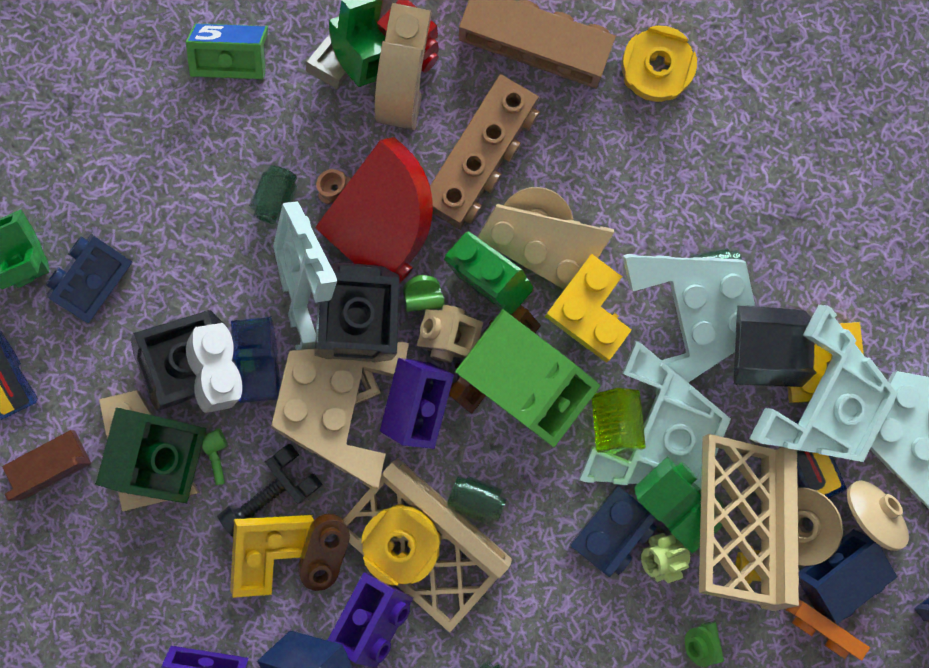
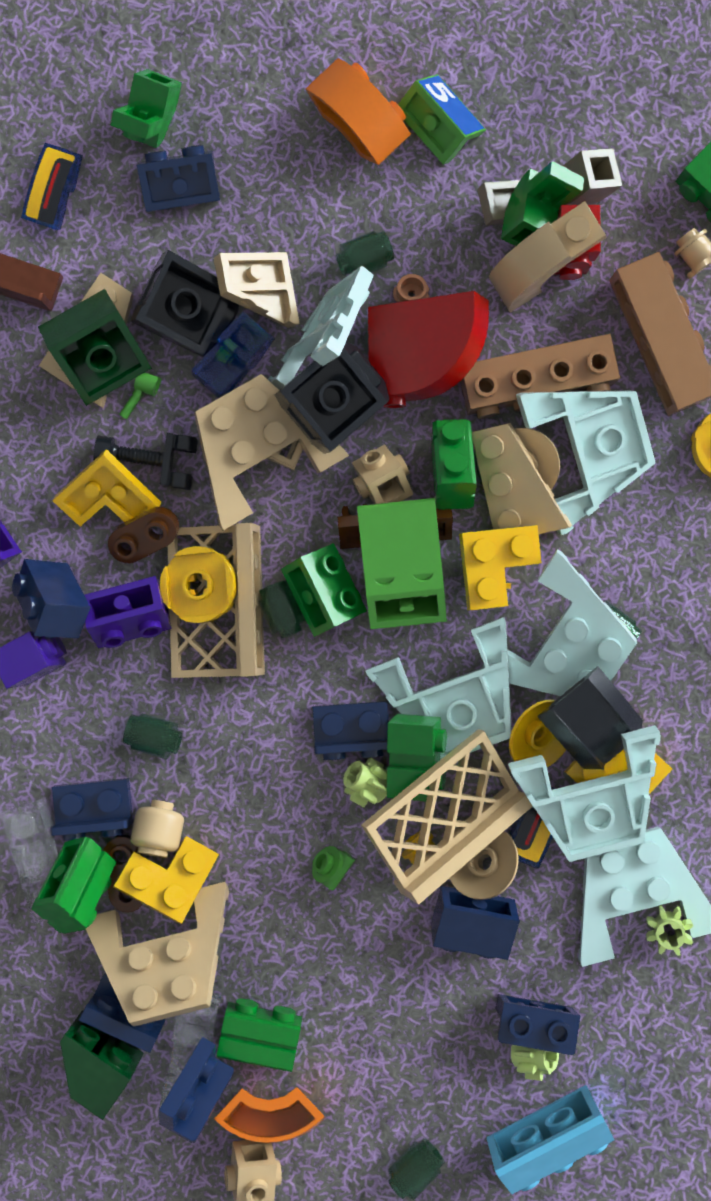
camera: 50 degrees right, 5 degrees up
(167, 102) = (359, 110): none -> orange brick
(217, 377) = (193, 340): white brick -> none
(221, 290) = (259, 284): none -> tan wing
(416, 403) = (309, 501): dark purple brick -> none
(422, 293) = (393, 431): bright green plate -> none
(492, 455) = (323, 589): none -> green brick
(572, 147) = (605, 438): none -> light aqua wing
(618, 421) = (433, 658): clear neon green piece -> none
(745, 402) = (533, 738): none -> yellow dish
(838, 640) = (423, 959): orange plate -> none
(878, 515) = (540, 907): tan dish -> none

